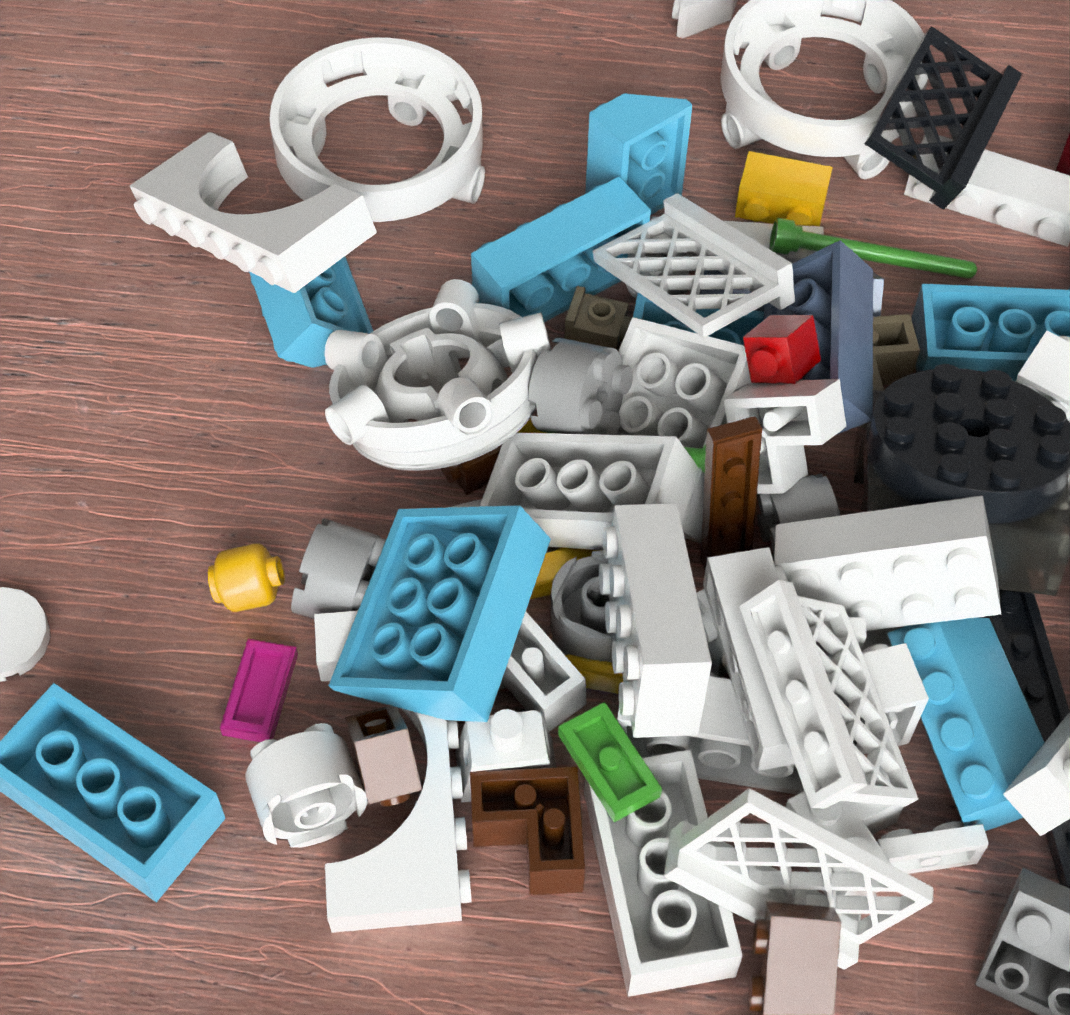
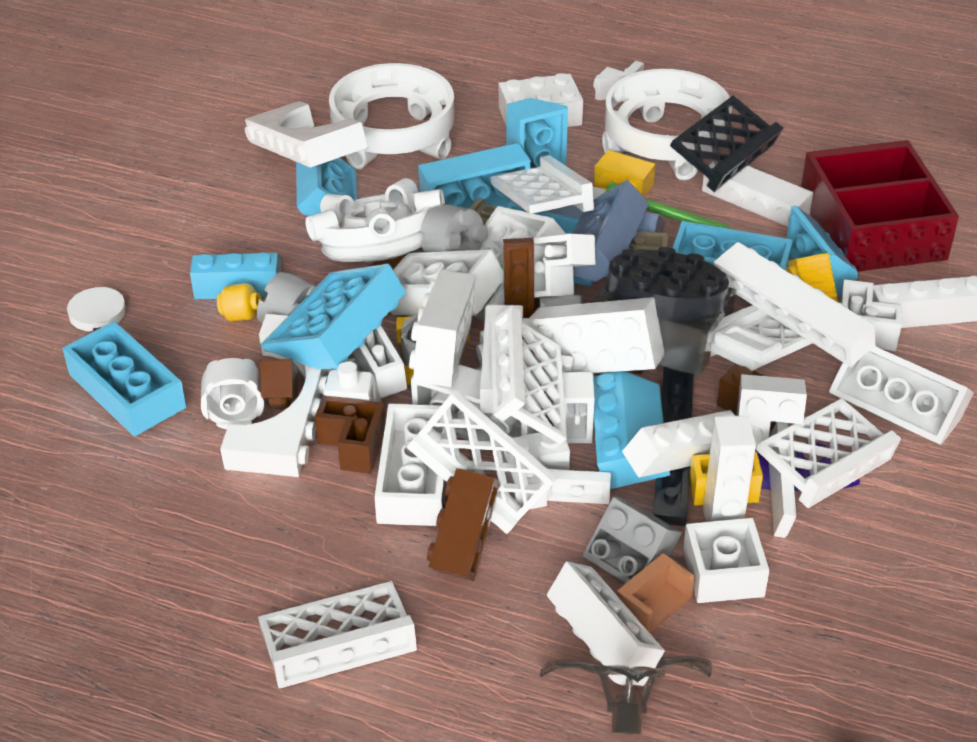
camera: 15 degrees right, 15 degrees down
(219, 512) = (214, 272): none -> medium azure slope
(259, 691) = (232, 346): dark pink tile -> none
(601, 62) = (554, 89): none -> white brick
(609, 762) = (400, 398): bright green plate -> none
(782, 349) = (570, 220): red brick -> none

